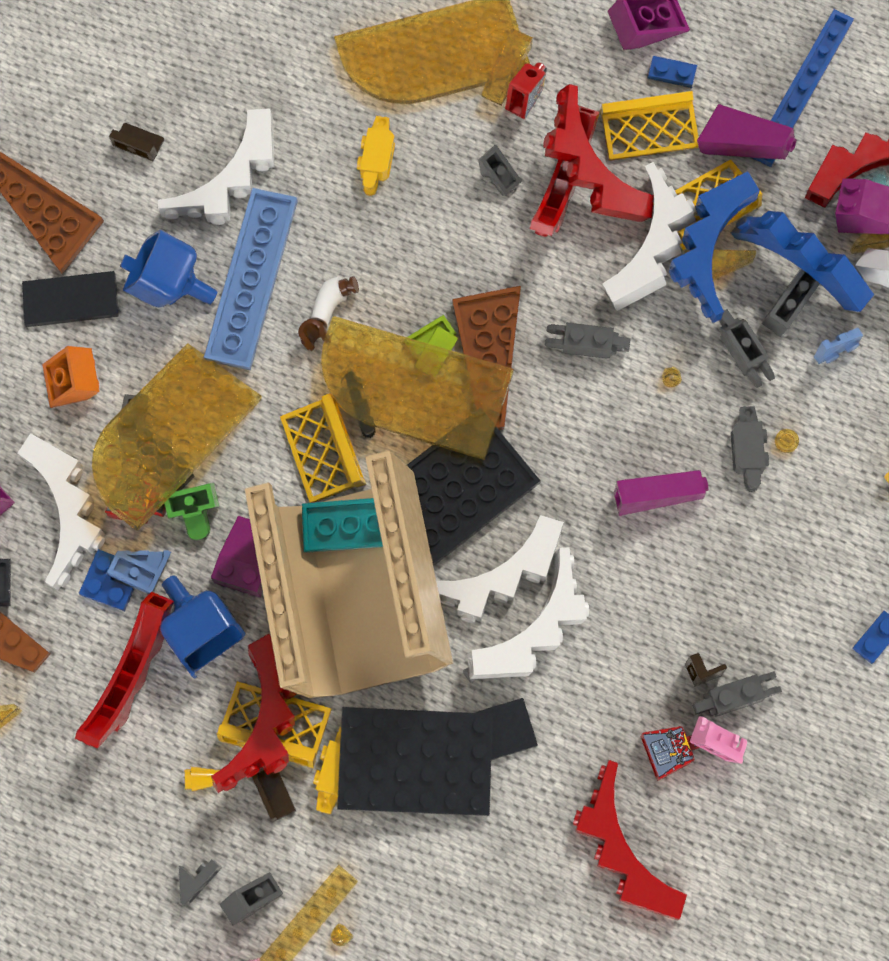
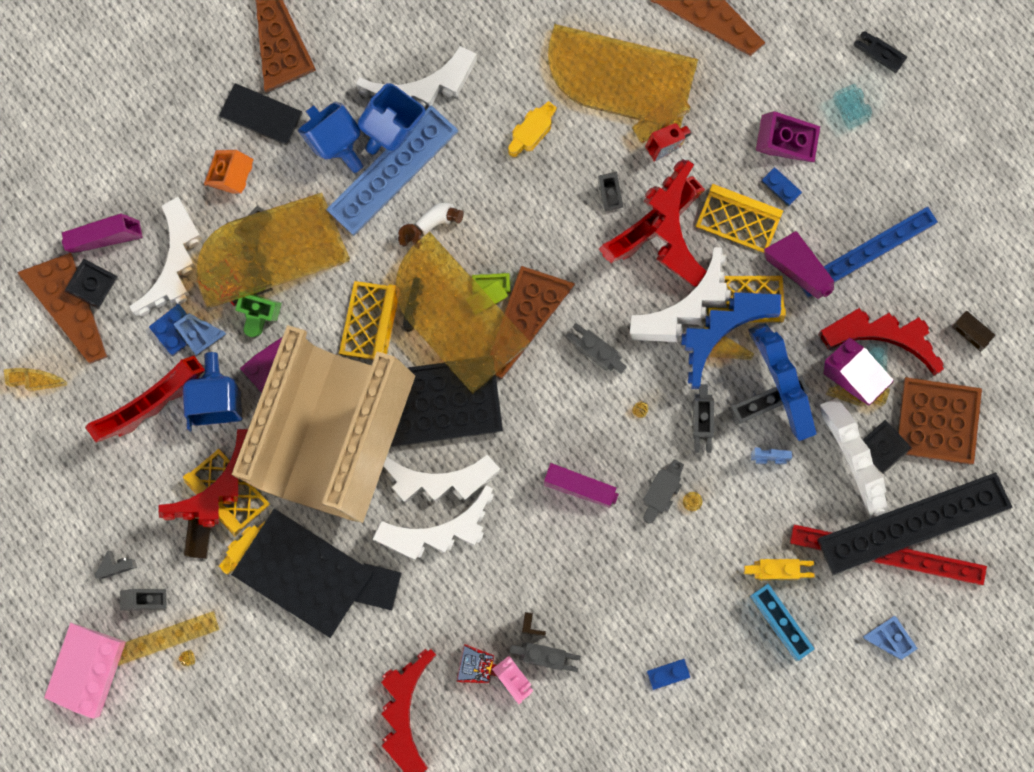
camera: 30 degrees right, 5 degrees up
(137, 141) = (372, 24): dark brown panel -> none
(198, 778) = (154, 498): yellow cone -> none
(219, 221) = (389, 118): none -> blue piece
(340, 525) = (341, 380): teal tile -> none

